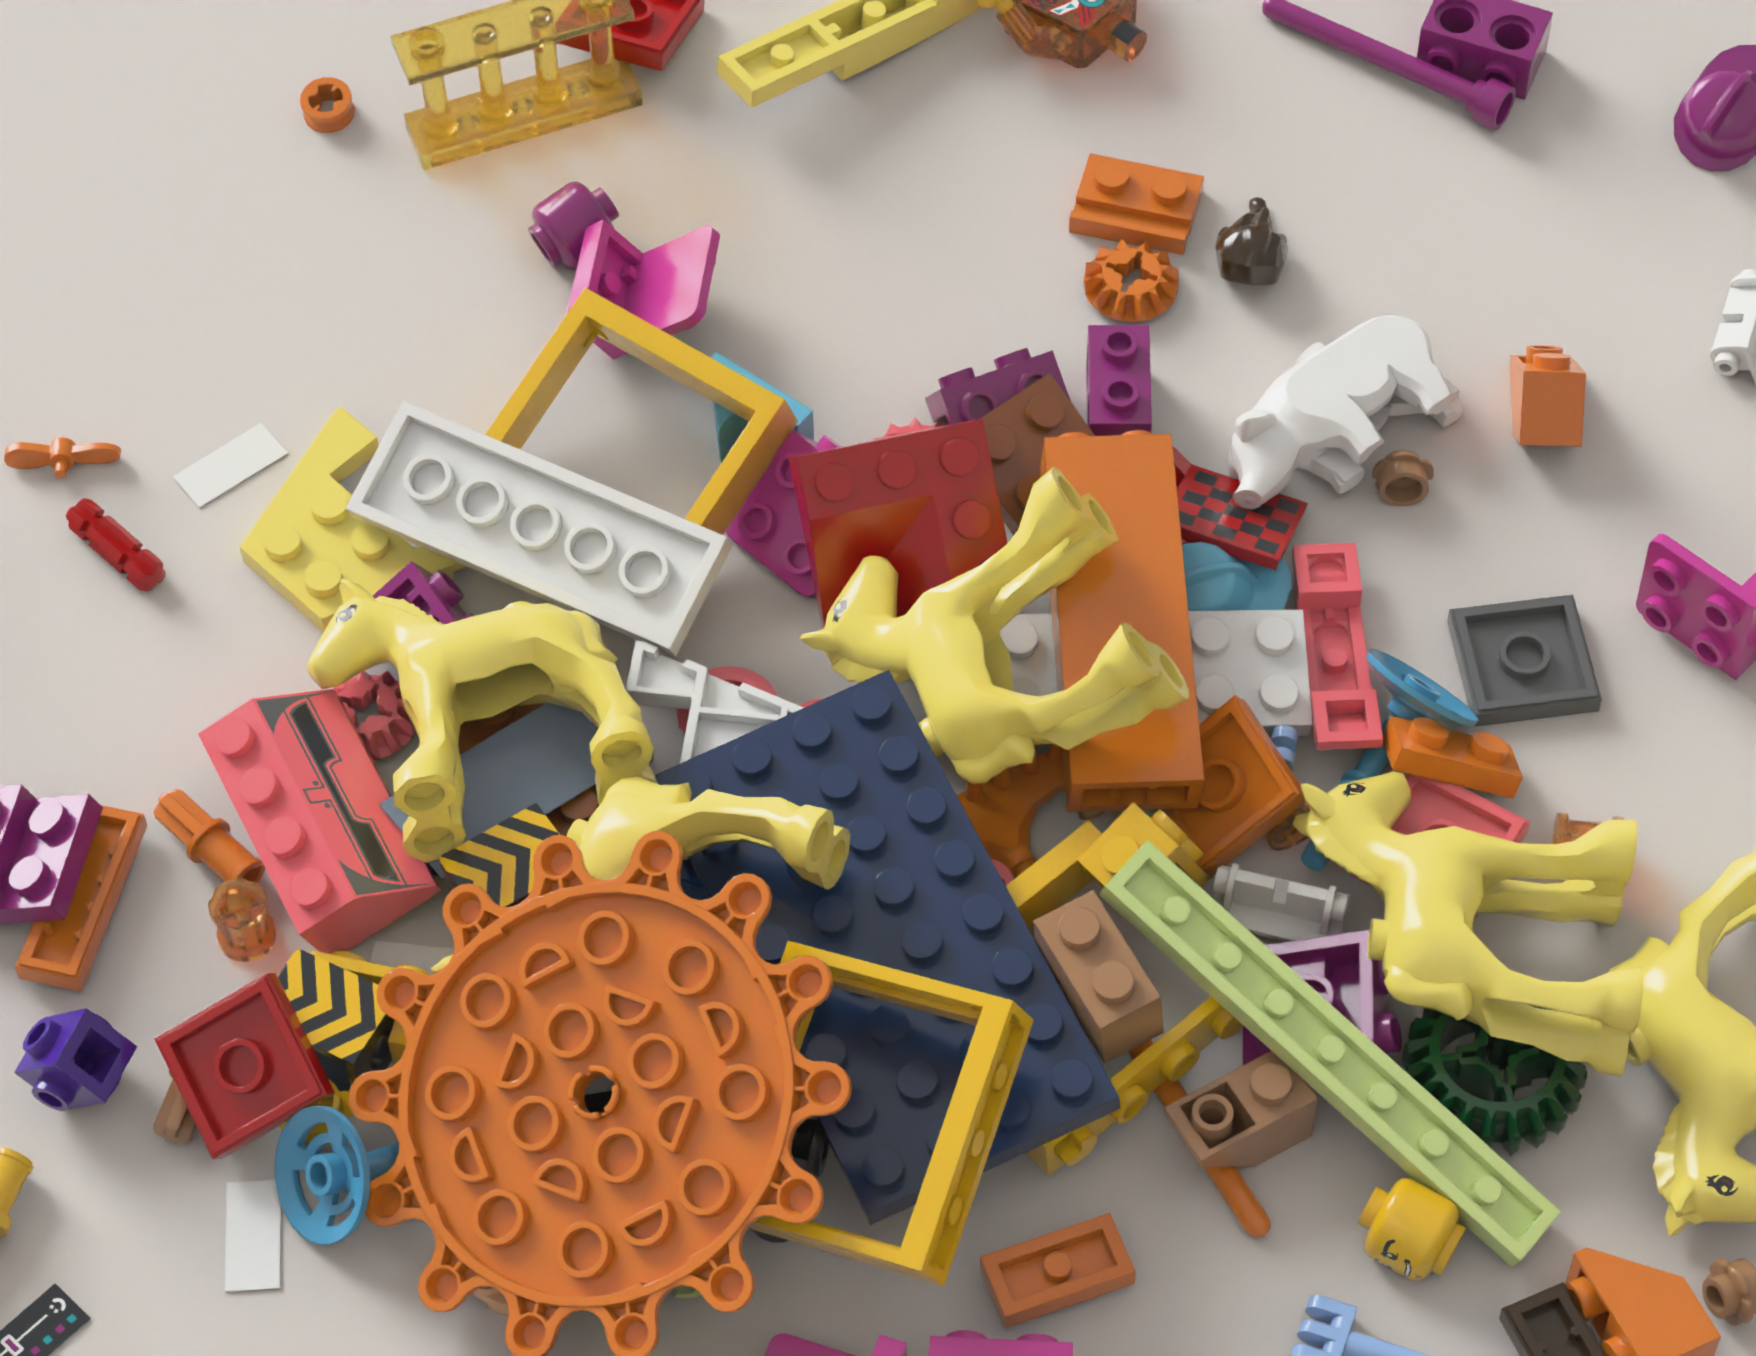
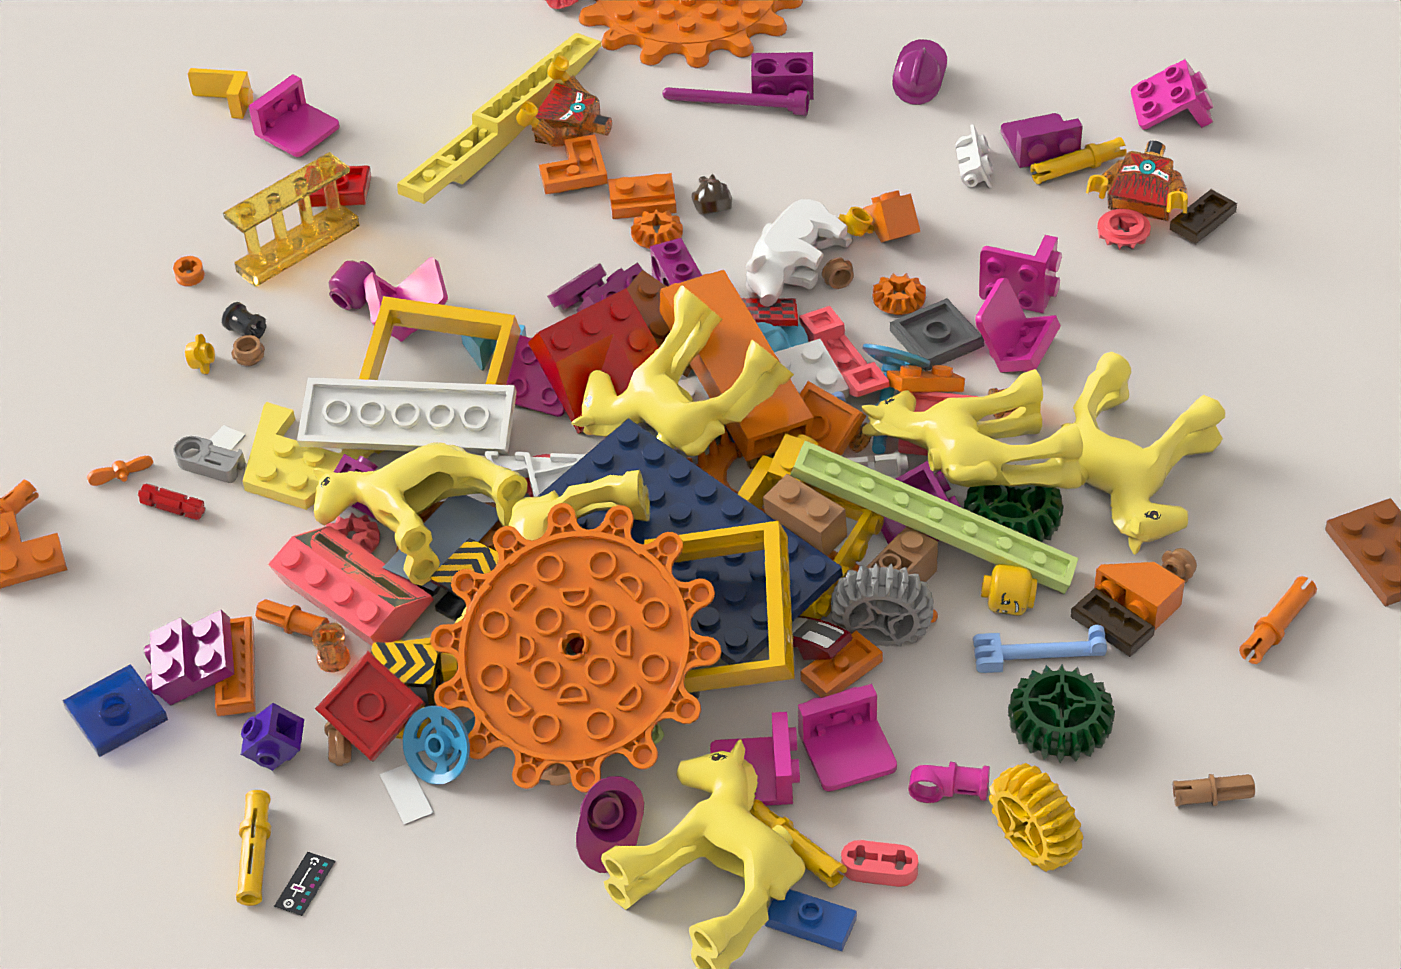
camera: 20 degrees left, 10 degrees down
(209, 487) = (211, 460): none -> light grey piece
(273, 278) = (200, 354): none -> yellow plate
(350, 285) = (248, 350): none -> medium nougat plate
(369, 238) = (244, 320): none -> black bush
(967, 347) = (567, 293): none -> magenta plate
(1033, 1205) = (818, 638): none -> slope
(1047, 123) = (581, 170): none -> orange plate
(1167, 1188) = (883, 604): none -> light grey gear
(1482, 574) = (899, 303): none -> orange gear
(1483, 384) = (857, 221): none -> yellow plate
(1647, 712) = (1012, 338): none -> dark pink bracket

